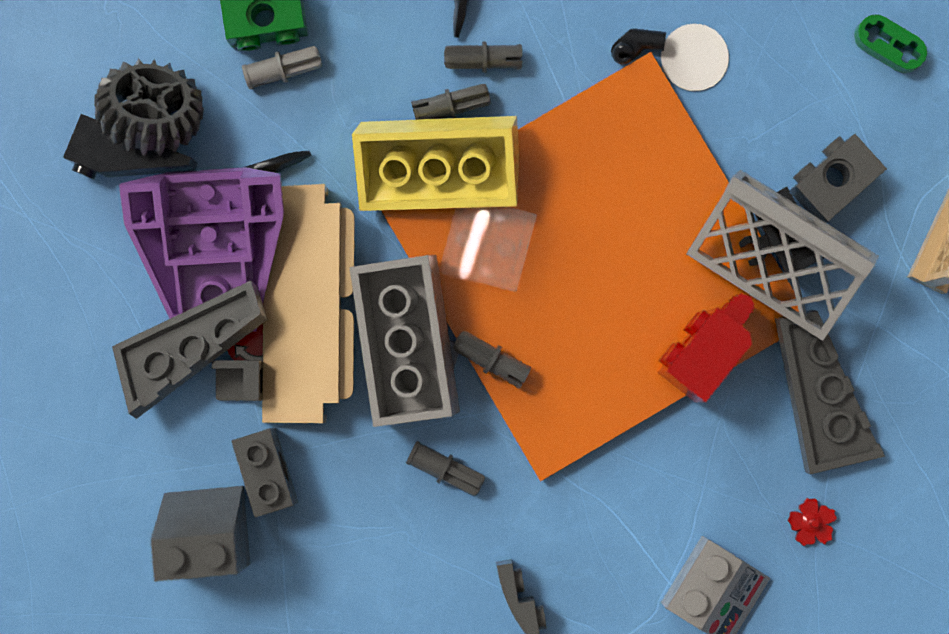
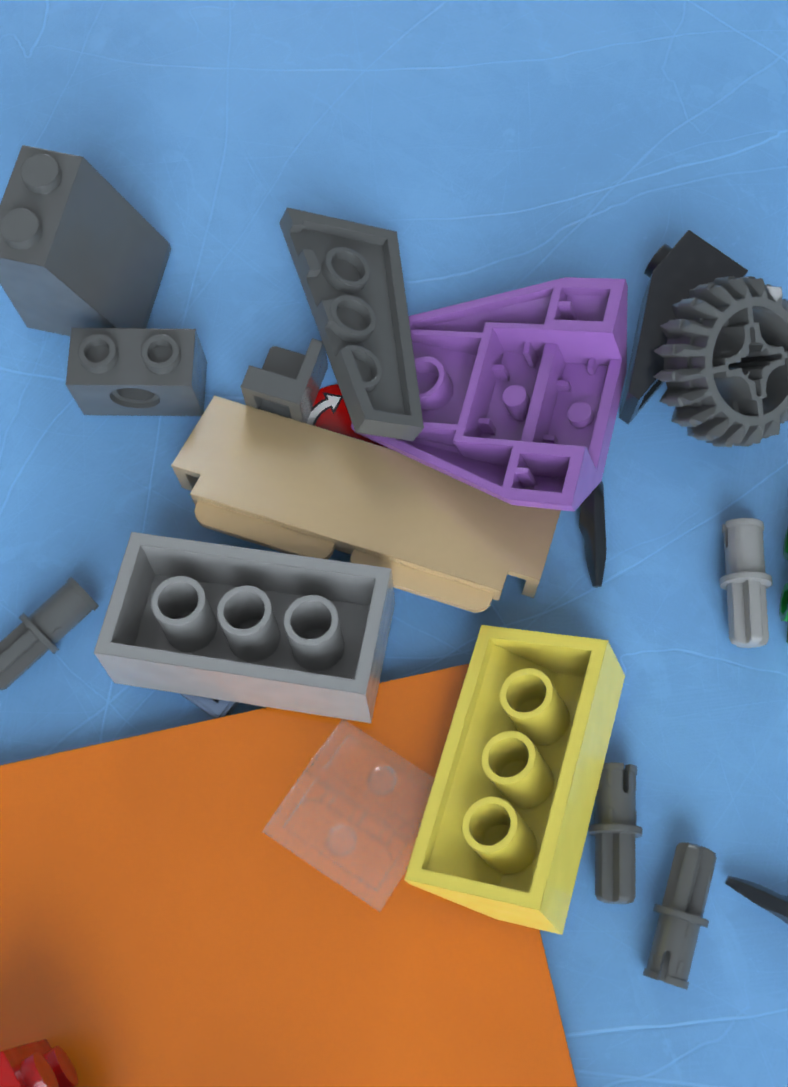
camera: 110 degrees right, 15 degrees down
(491, 359) = (169, 759): dark grey axle -> none

